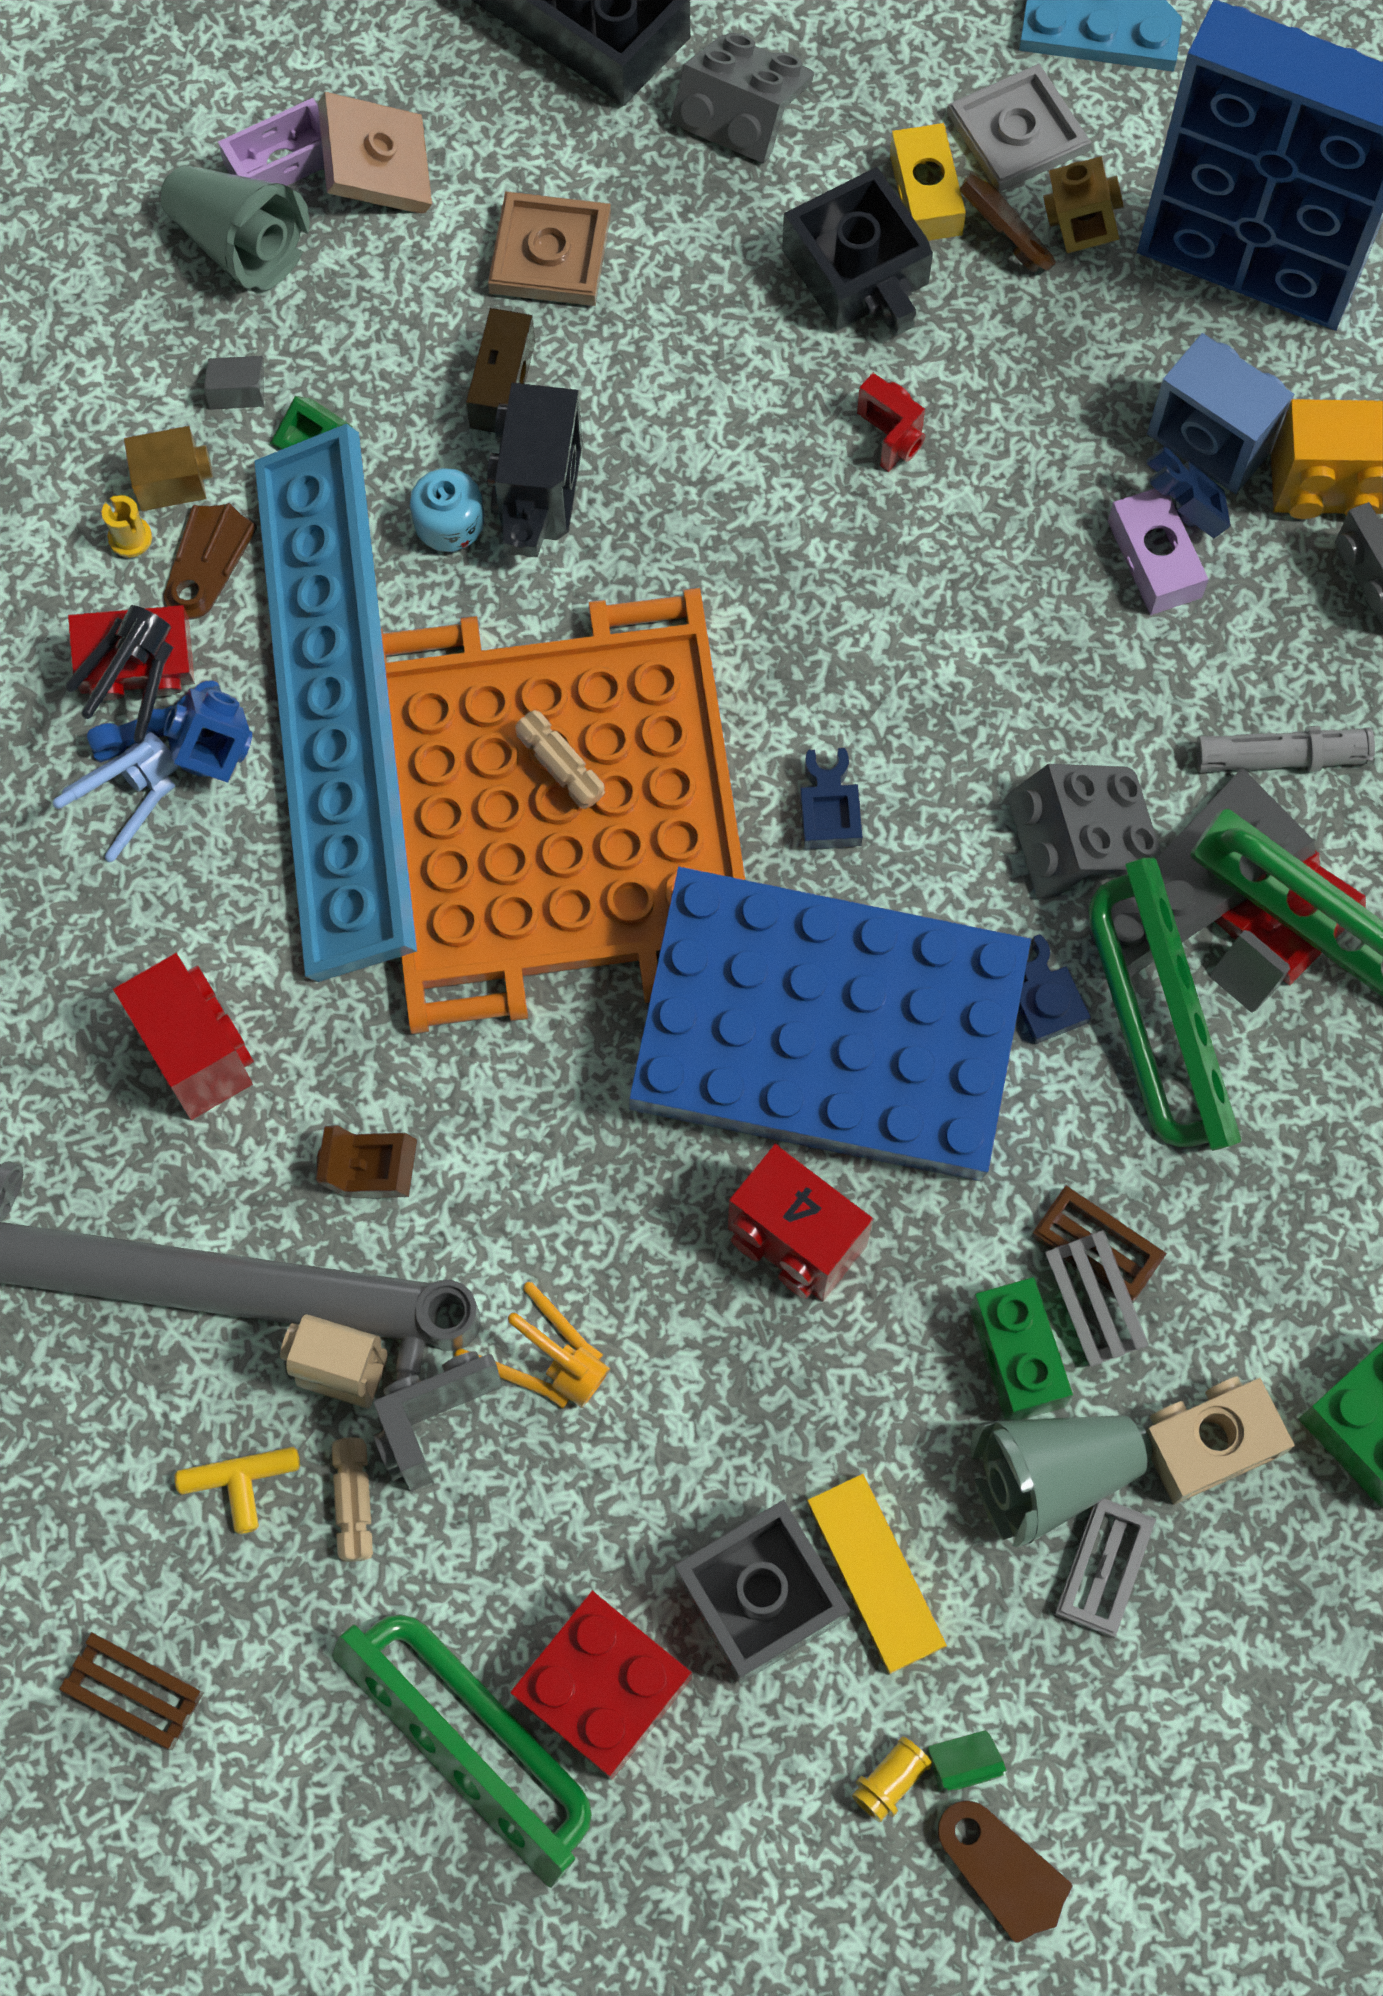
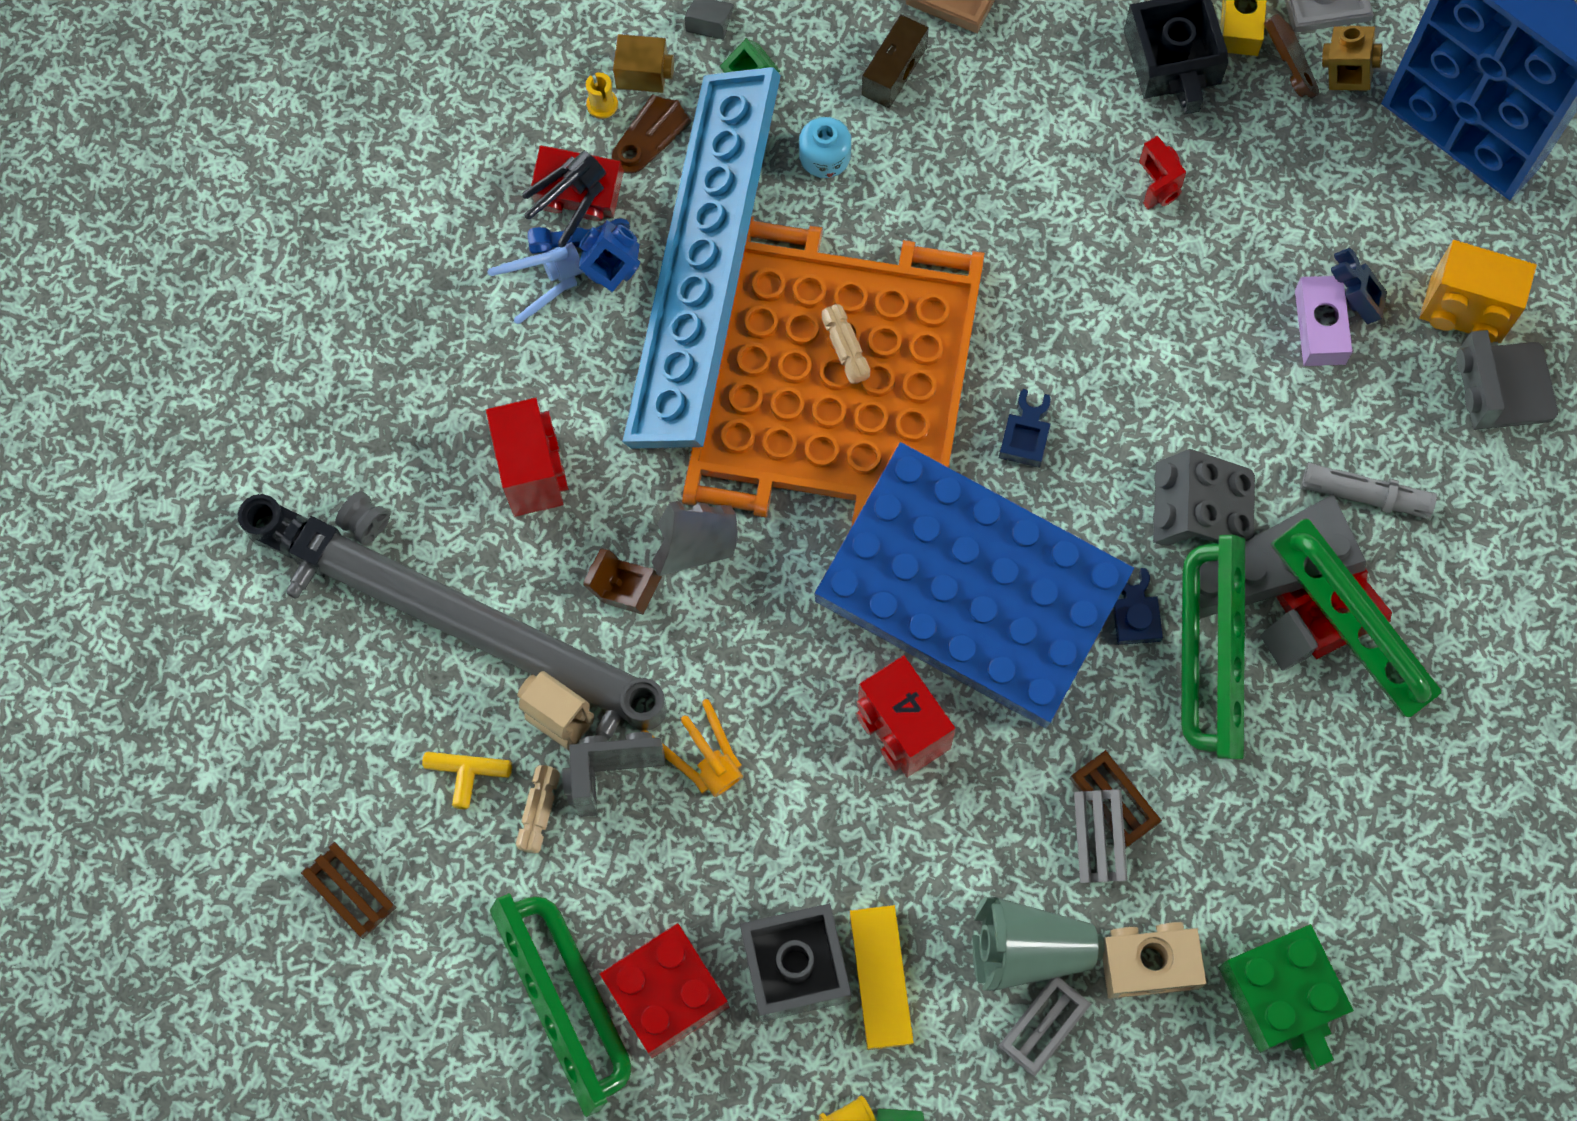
camera: 20 degrees right, 0 degrees up
(446, 1073) = (695, 536): none -> flat silver slope
(535, 465) = (896, 134): black hinge -> none
(1020, 1350) = (1033, 854): green brick -> none
(1219, 412) = (1400, 234): medium blue brick -> none

